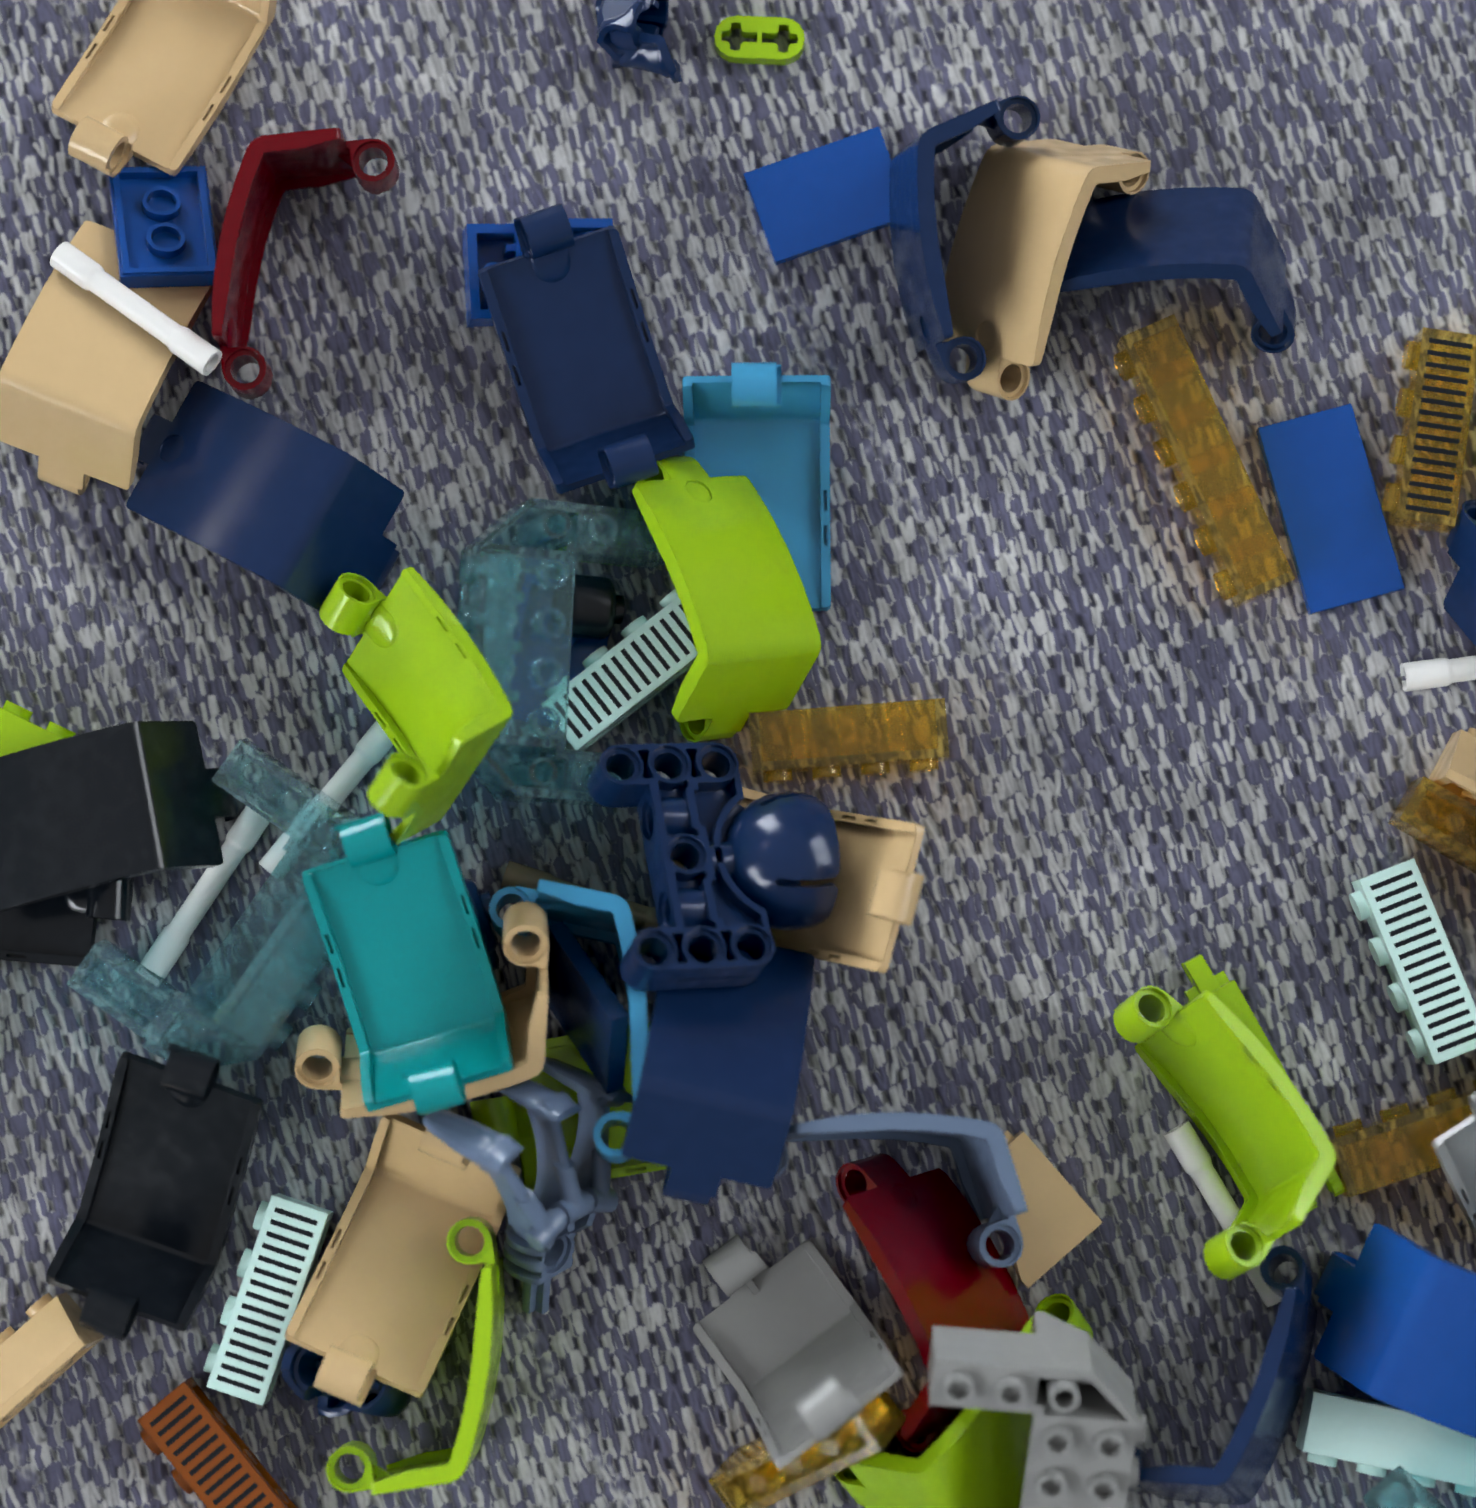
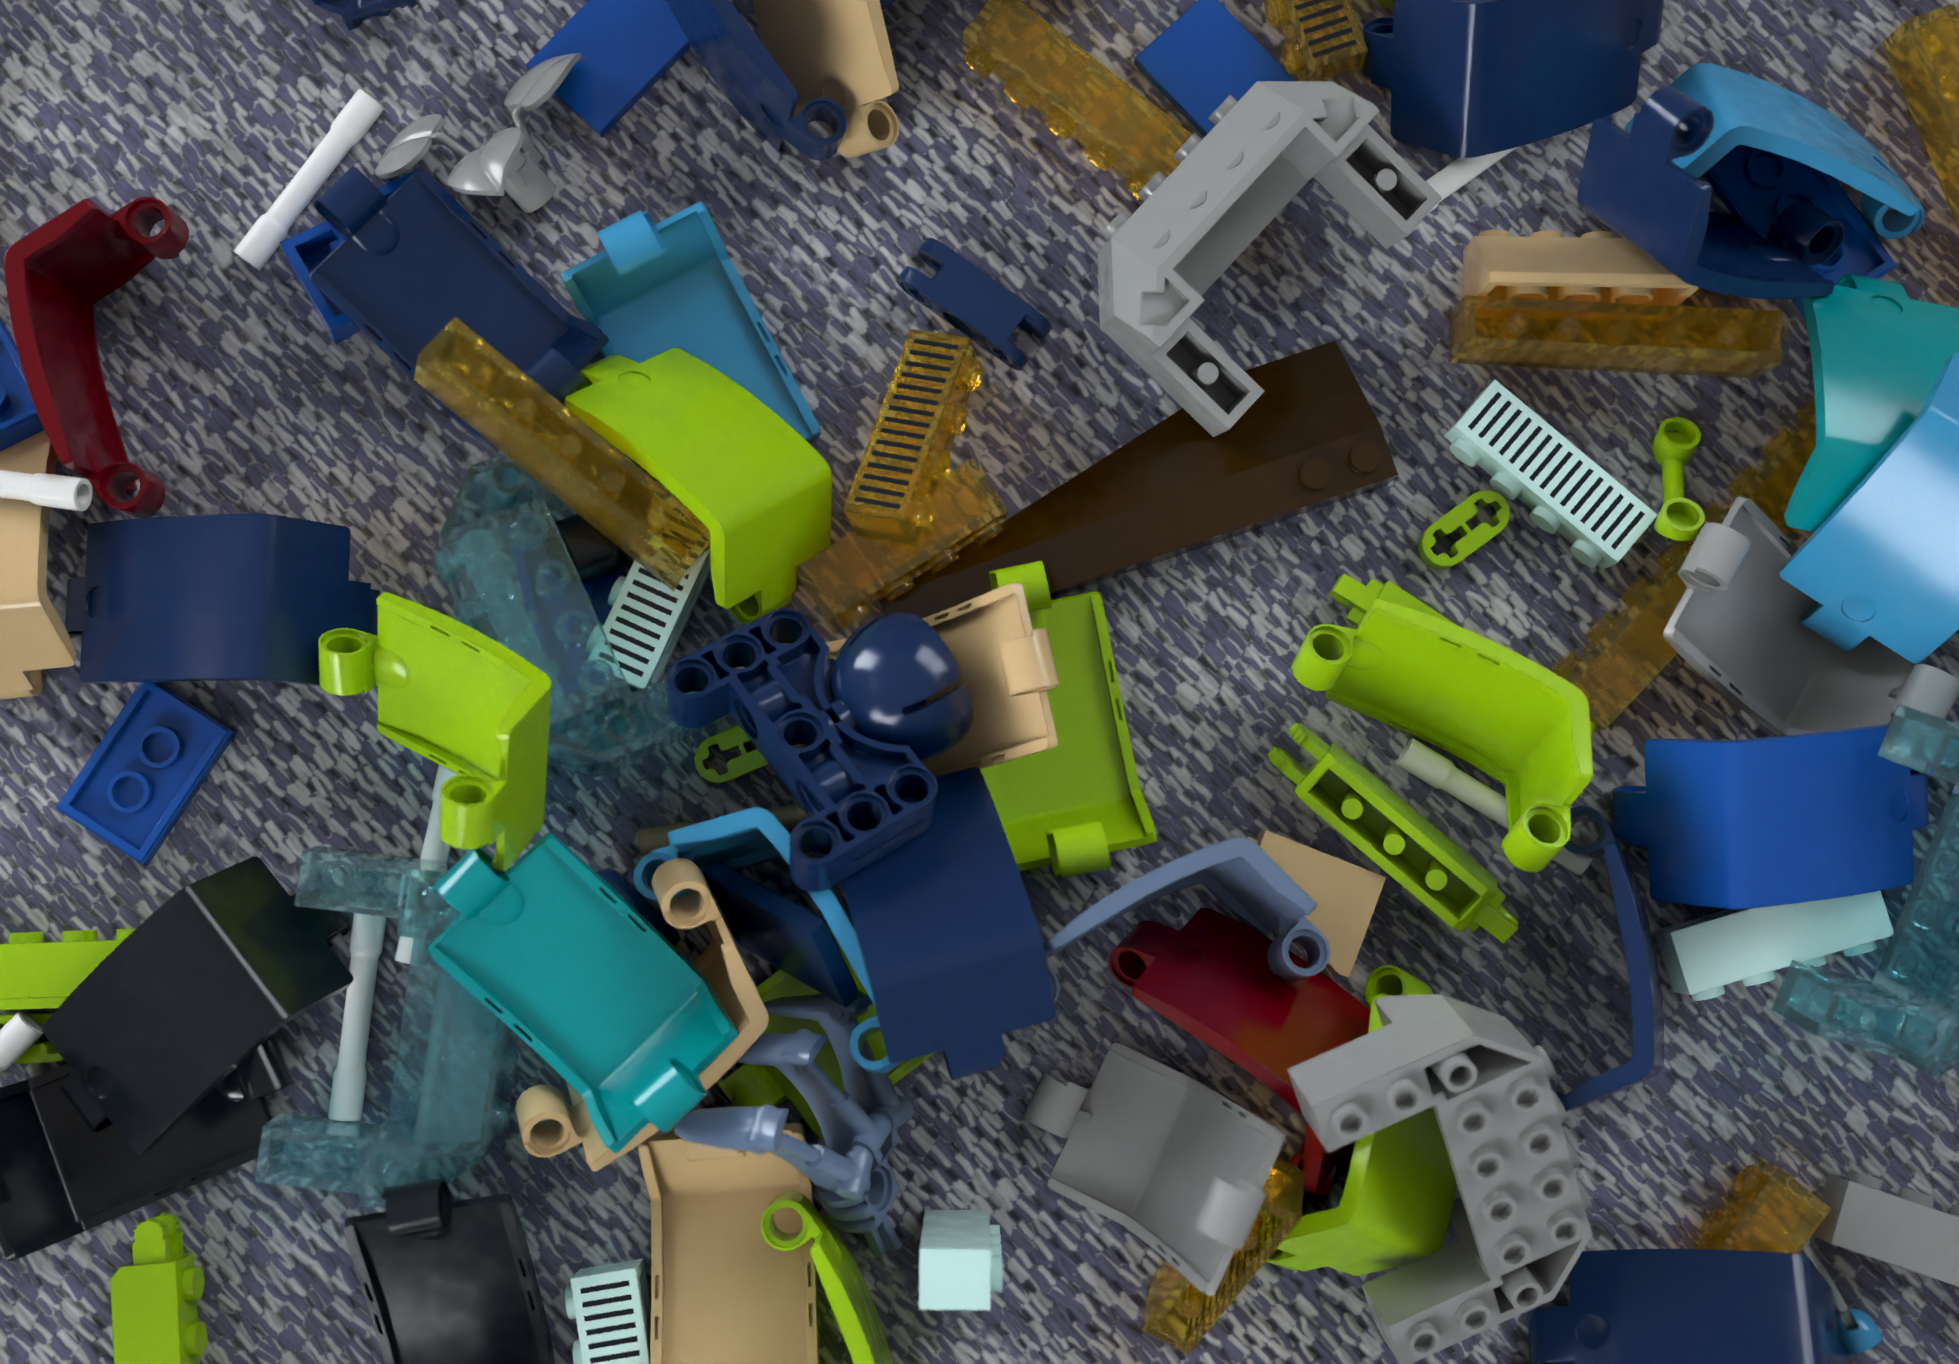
camera: 35 degrees left, 0 degrees up
(136, 602) = (146, 770): none -> blue tile
(468, 201) = (344, 133): none -> white piece
(593, 1341) = (959, 1260): none -> light aqua brick
(612, 531) = (562, 453): none -> clear yellow brick
(617, 851) = (737, 767): none -> lime beam
(686, 261) = (498, 162): none -> light grey plant
(892, 1022) = (1084, 794): none -> lime panel
(903, 656) = (913, 437): none -> clear yellow brick
(1012, 566) = (972, 302): none -> dark blue piece
(1129, 1193) = (1396, 836): none -> lime hinge
(1148, 810) = (1183, 490): none -> dark brown wedge
(1251, 596) = (1216, 207): none -> light grey wedge
(1322, 957) = (1471, 539): none -> lime beam

